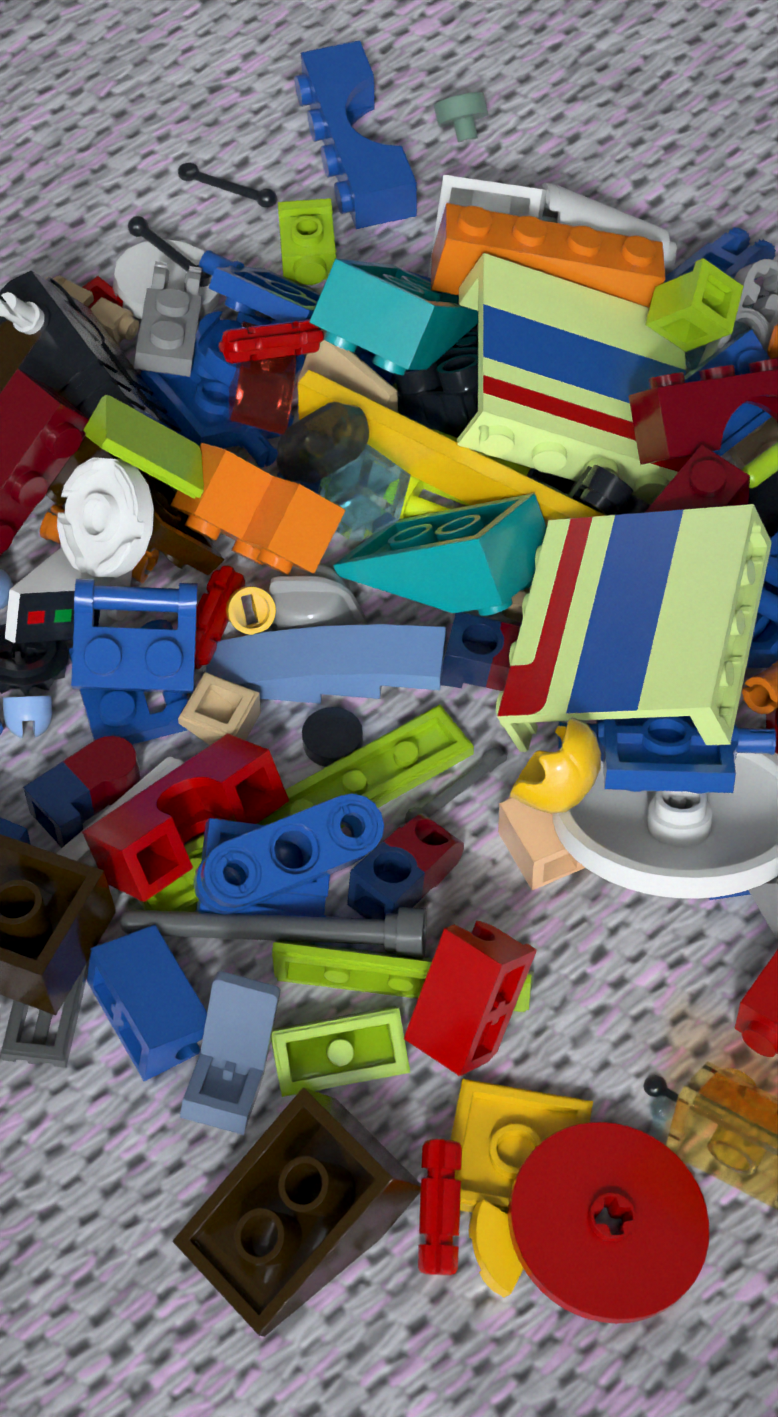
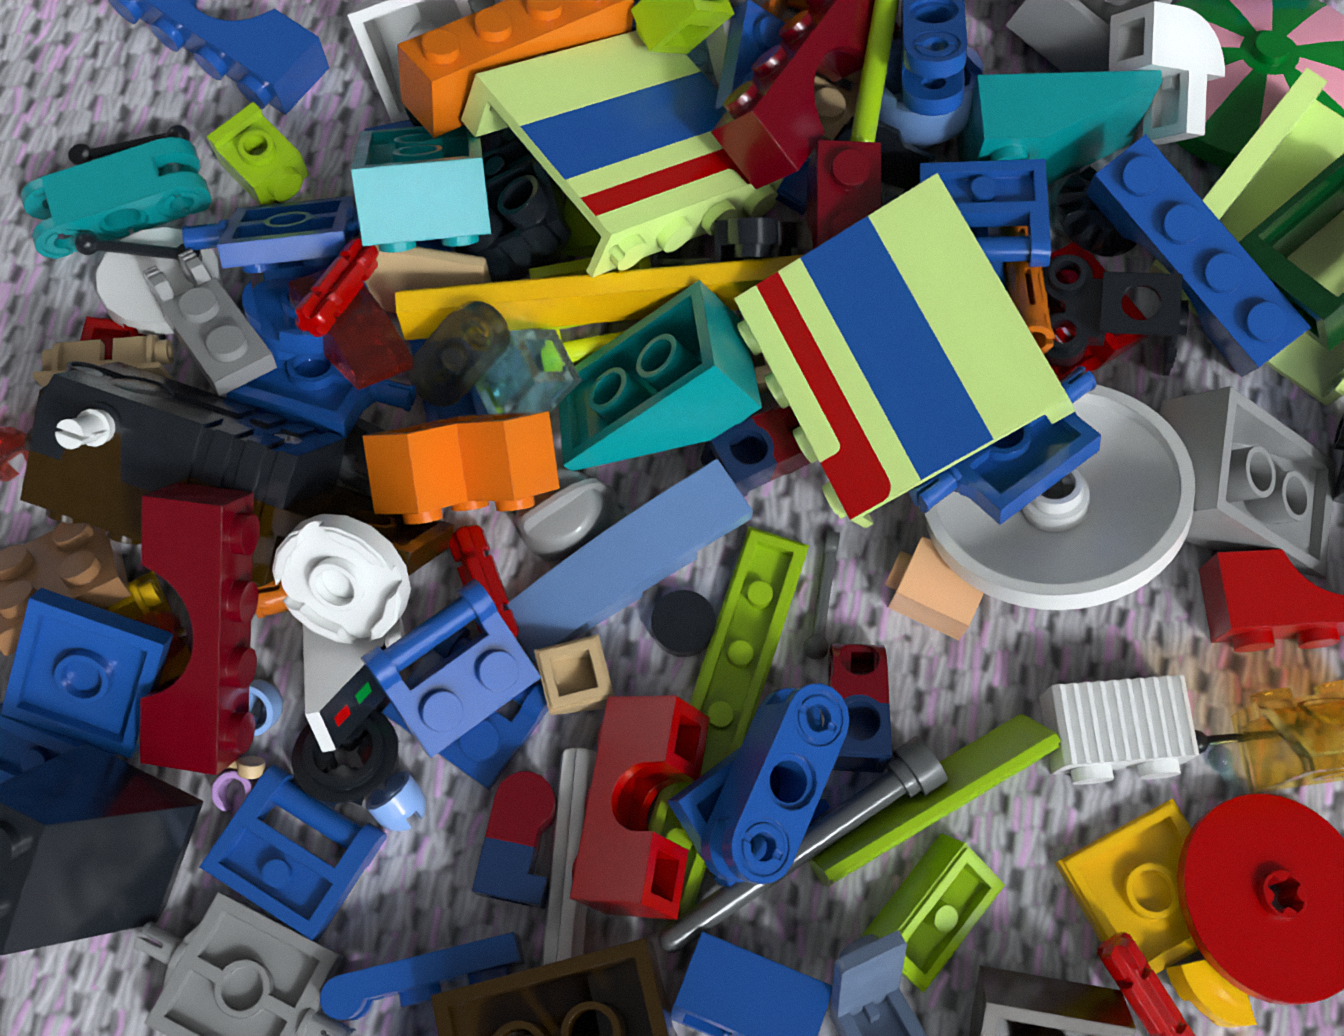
camera: 40 degrees left, 15 degrees up
(147, 445) = (328, 484): lime slope -> none
(188, 208) = (116, 195): none -> teal piece
(262, 606) = (528, 548): yellow hinge -> none
(469, 996) = (1029, 794): red hinge -> none
(561, 778) = (960, 539): yellow hair -> none
(593, 1020) = (1120, 727): none -> white brick

